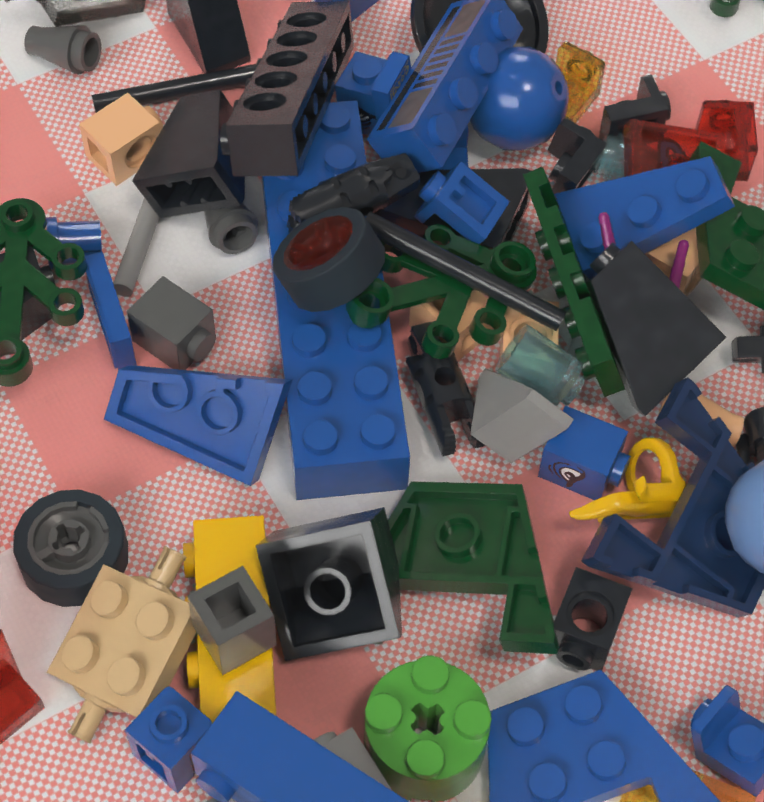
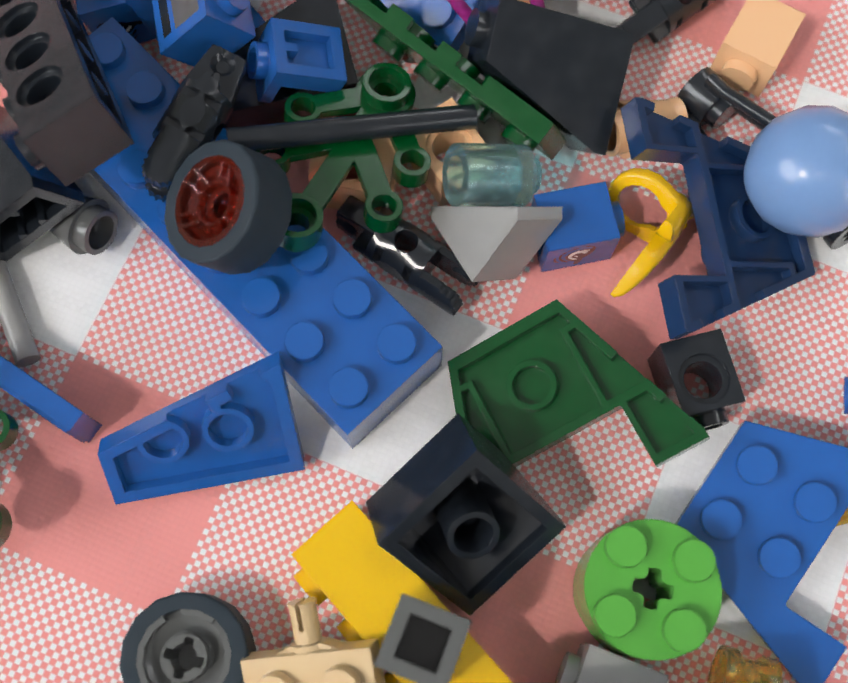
camera: 35 degrees left, 15 degrees up
(172, 325) = (108, 365): dark grey brick -> none

